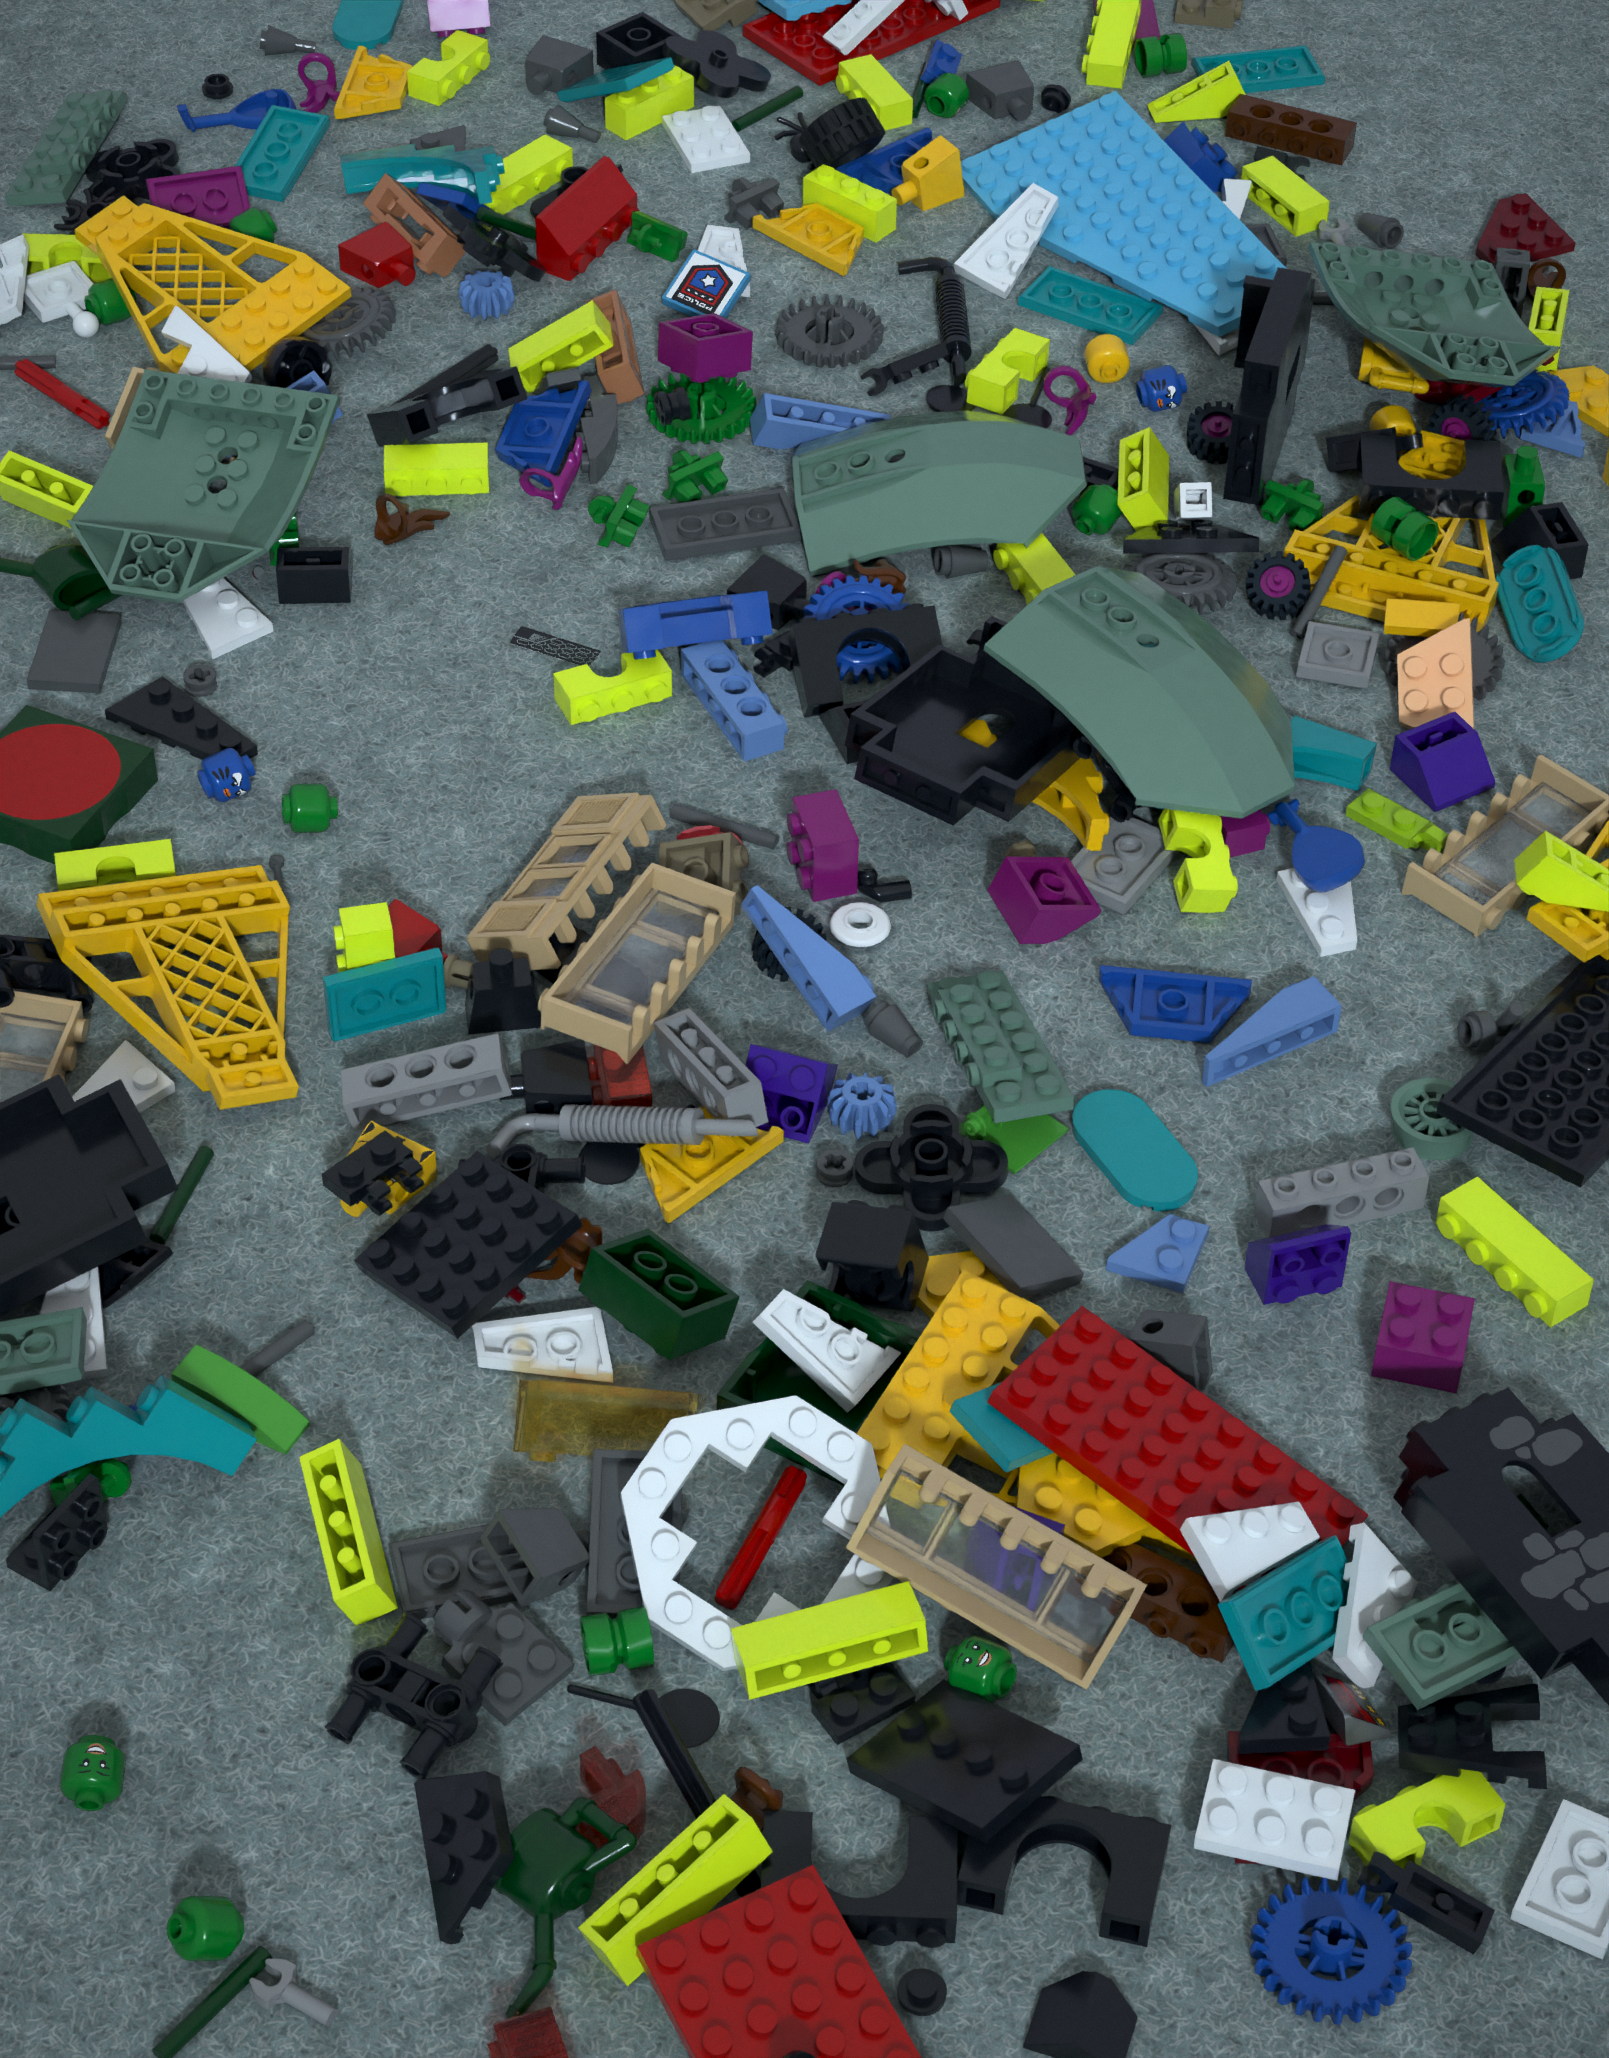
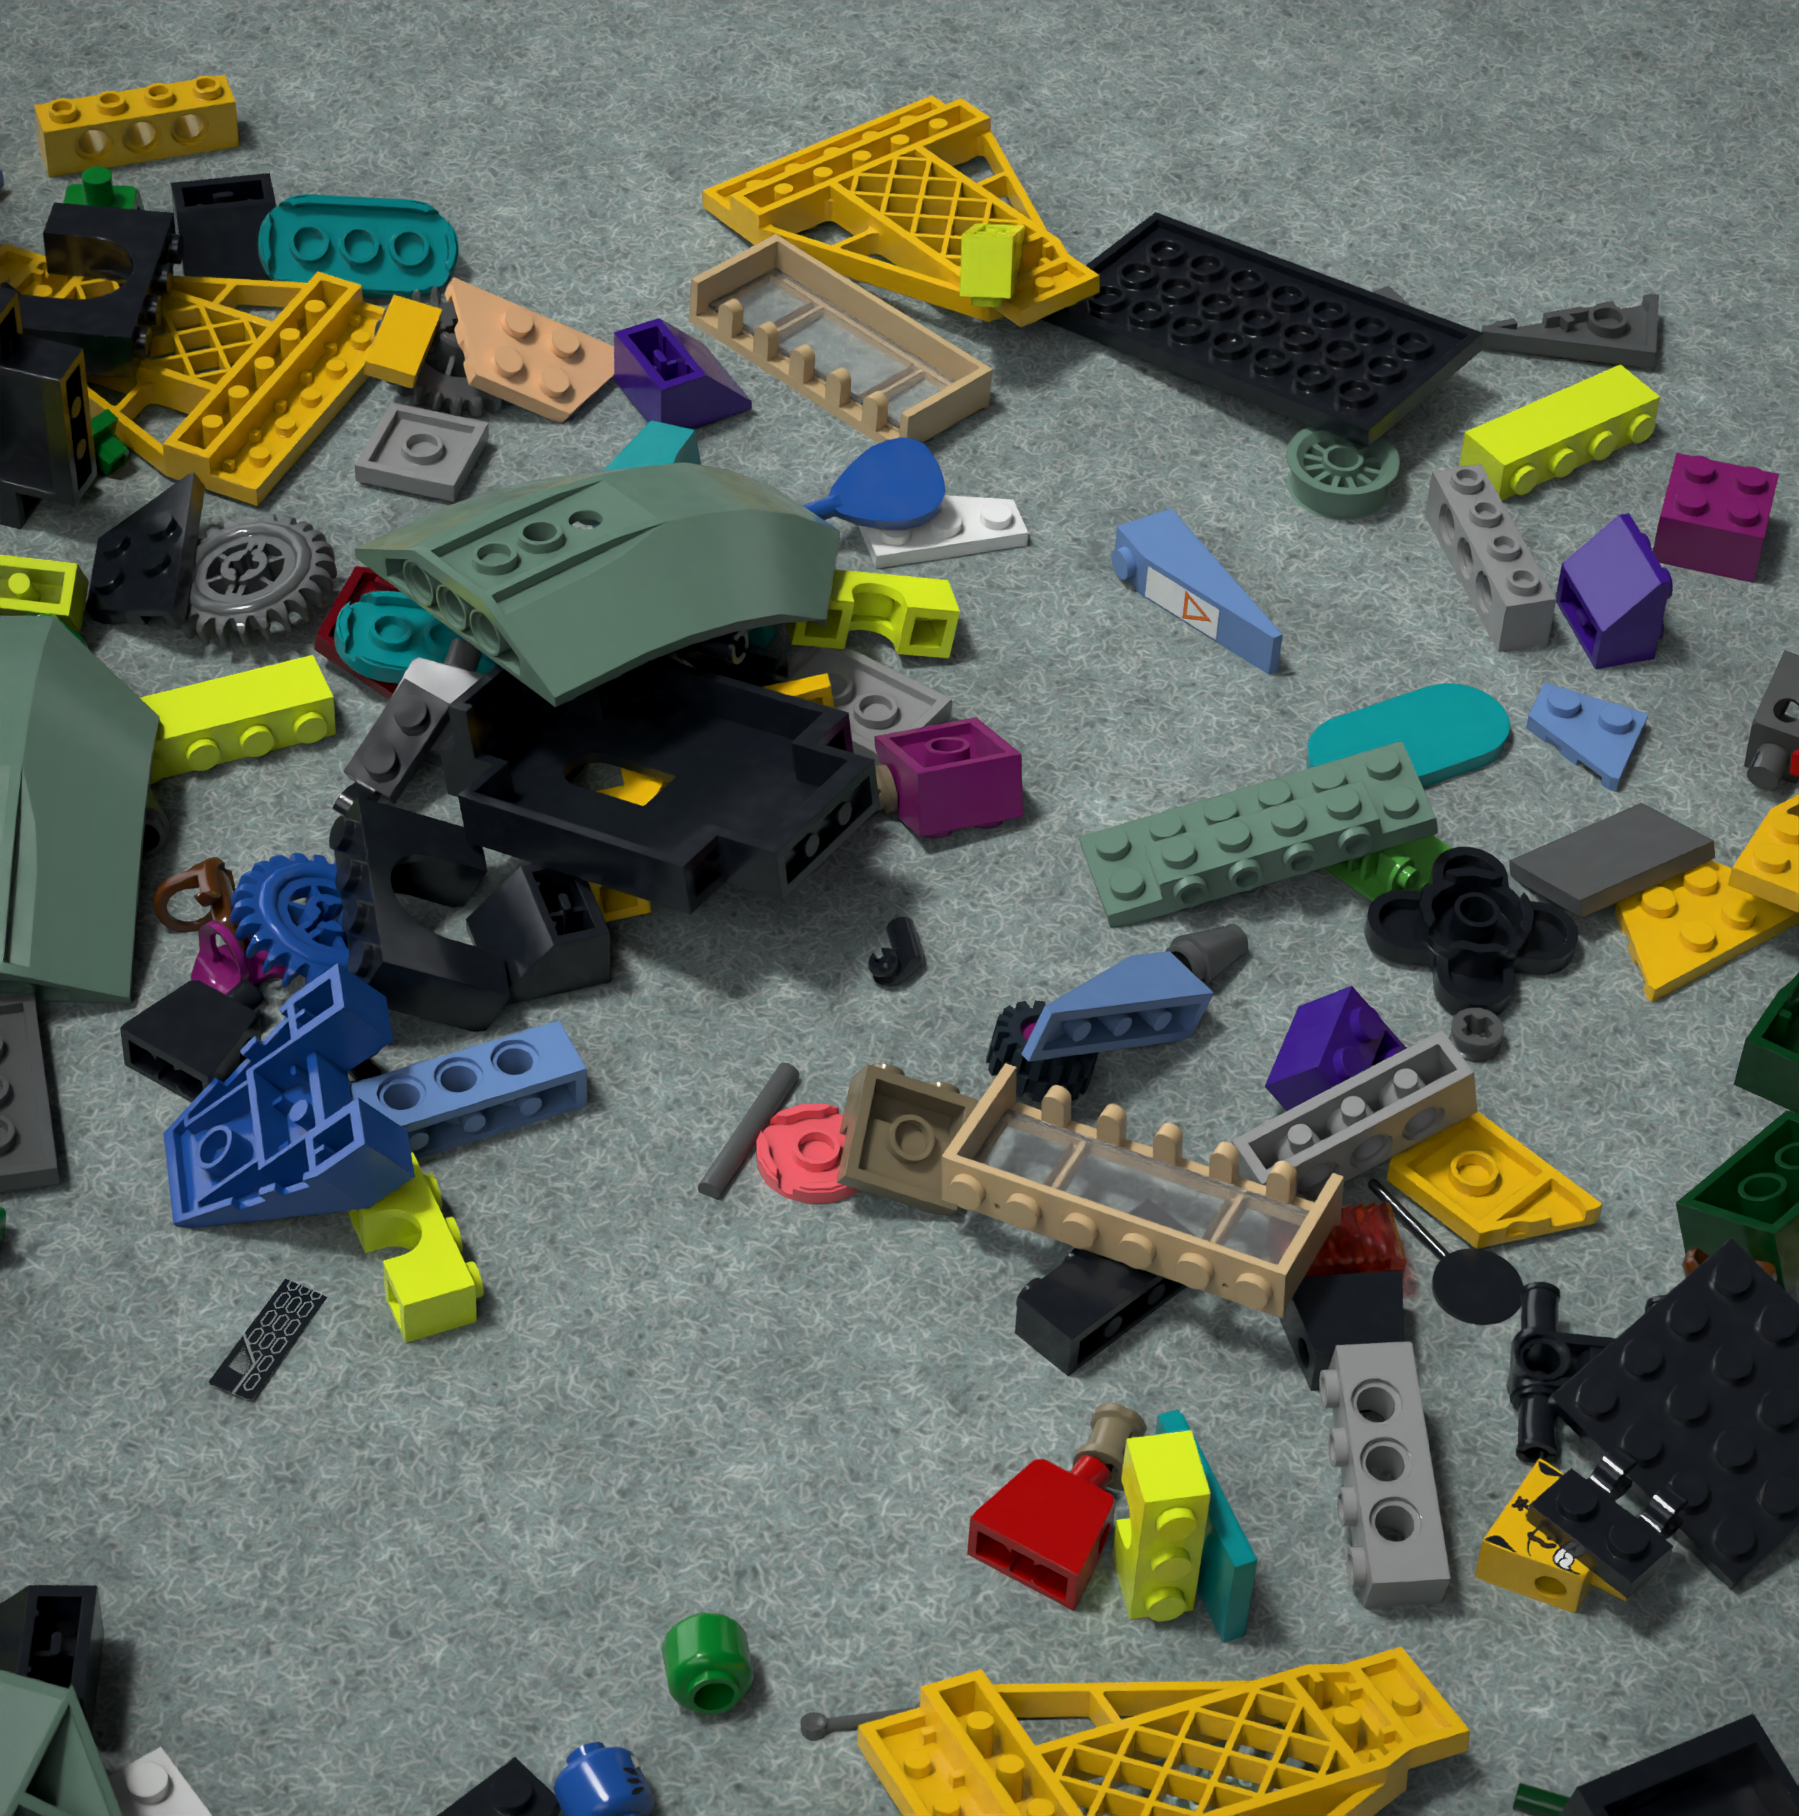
camera: 90 degrees left, 0 degrees up
(502, 995) = (1180, 1363): black torso -> none
(560, 874) = (928, 1295): tan window -> none
(622, 1125) = (1451, 1243): light grey piece -> none
(823, 845) = (852, 985): magenta brick -> none
(861, 1104) = (1375, 977): medium blue gear -> none
(863, 913) = (981, 963): white piece -> none
(873, 1254) = (1694, 966): black piece -> none
(1173, 1002) = (1138, 679): blue wing -> none
(1193, 501) = (75, 533): white leg -> none
(1278, 585) = (282, 476): black wheel -> none
(1319, 591) = (298, 443): dark grey piece -> none
(1395, 822) = (776, 439): lime hinge -> none
(1404, 528) = (222, 321): green wheel -> none
(1479, 1029) = (1182, 409): dark grey piece -> none

